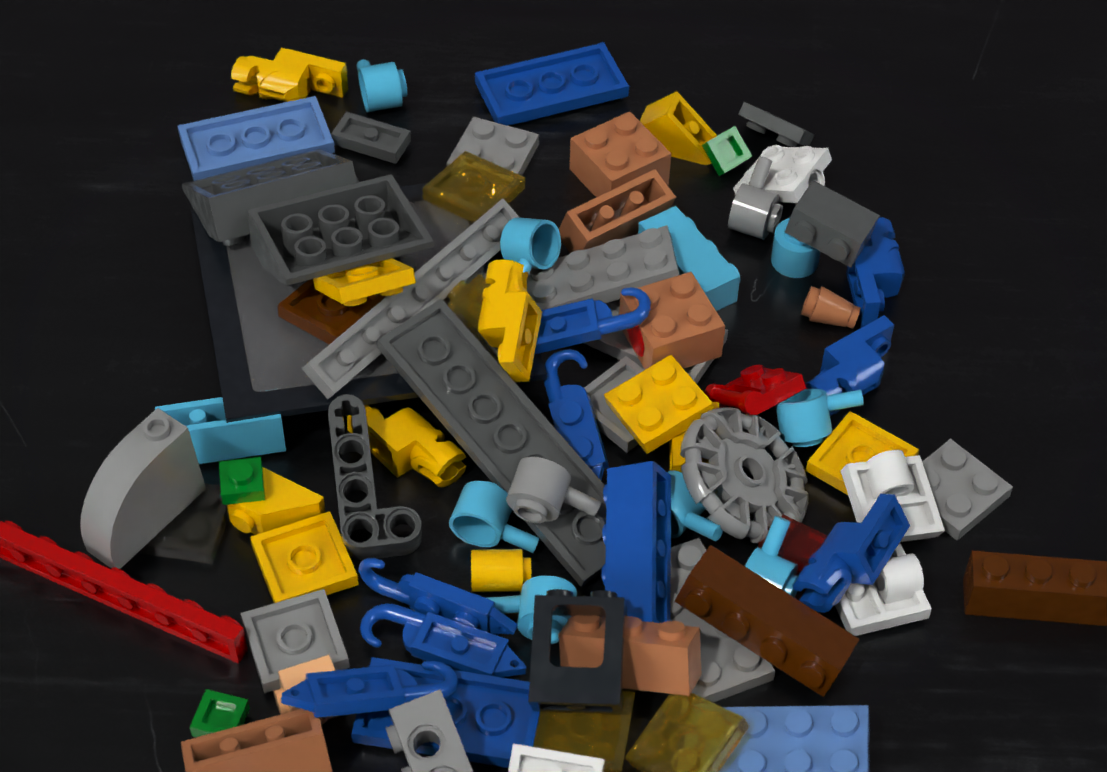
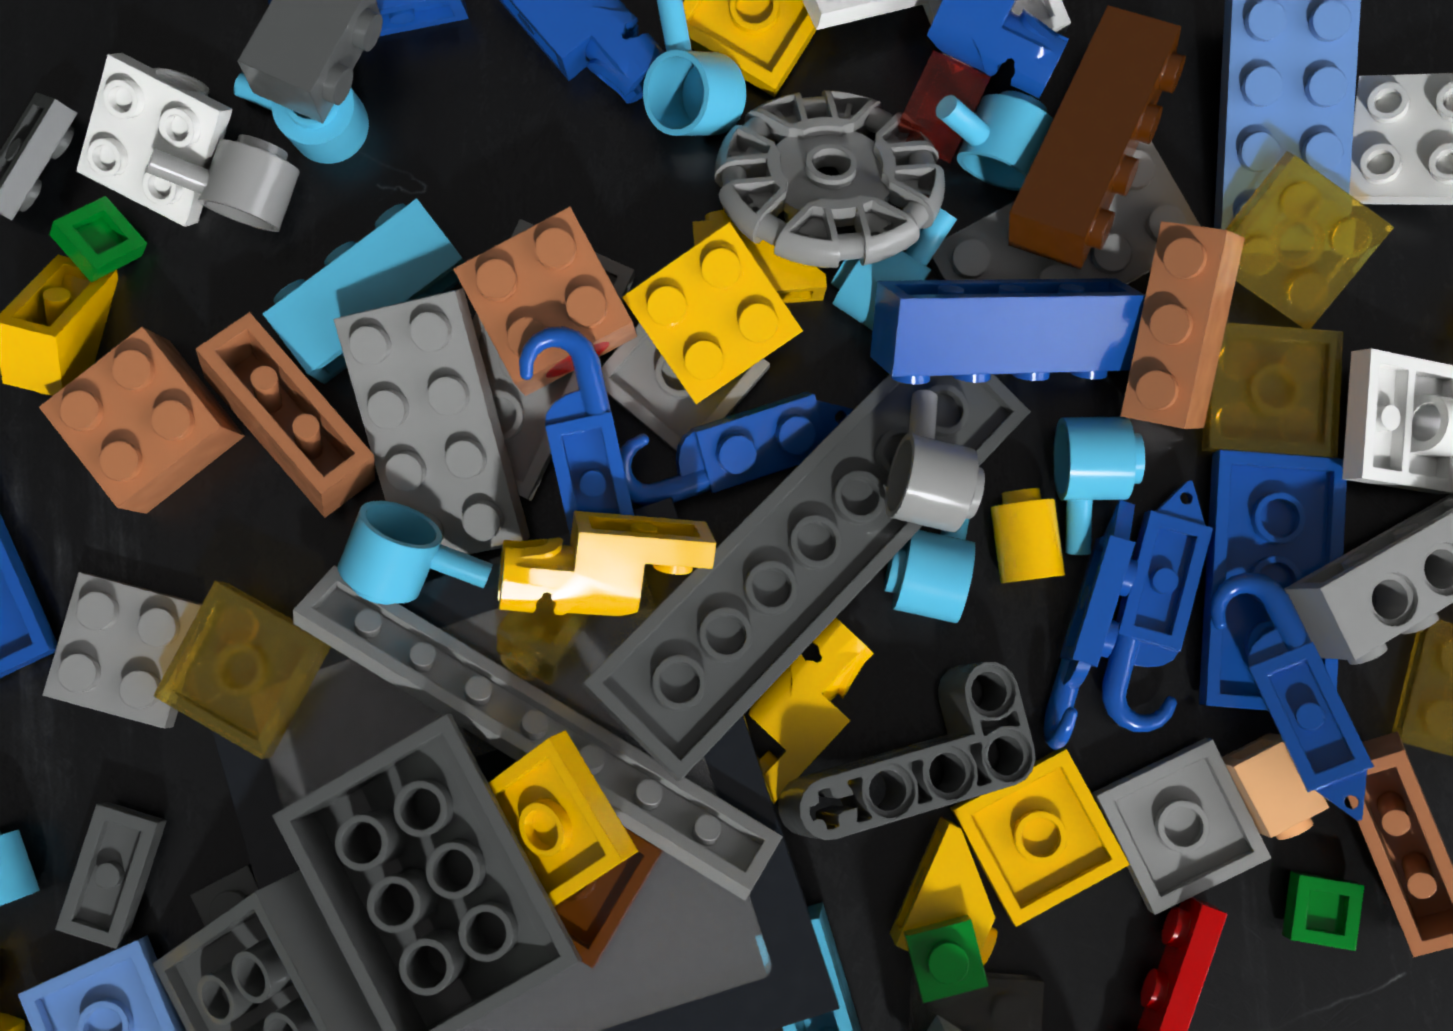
camera: 90 degrees left, 35 degrees up
(577, 687) = (1273, 394): black window -> none
(757, 389) = (641, 154): red plate -> none
(829, 308) = (448, 63): nougat cone -> none

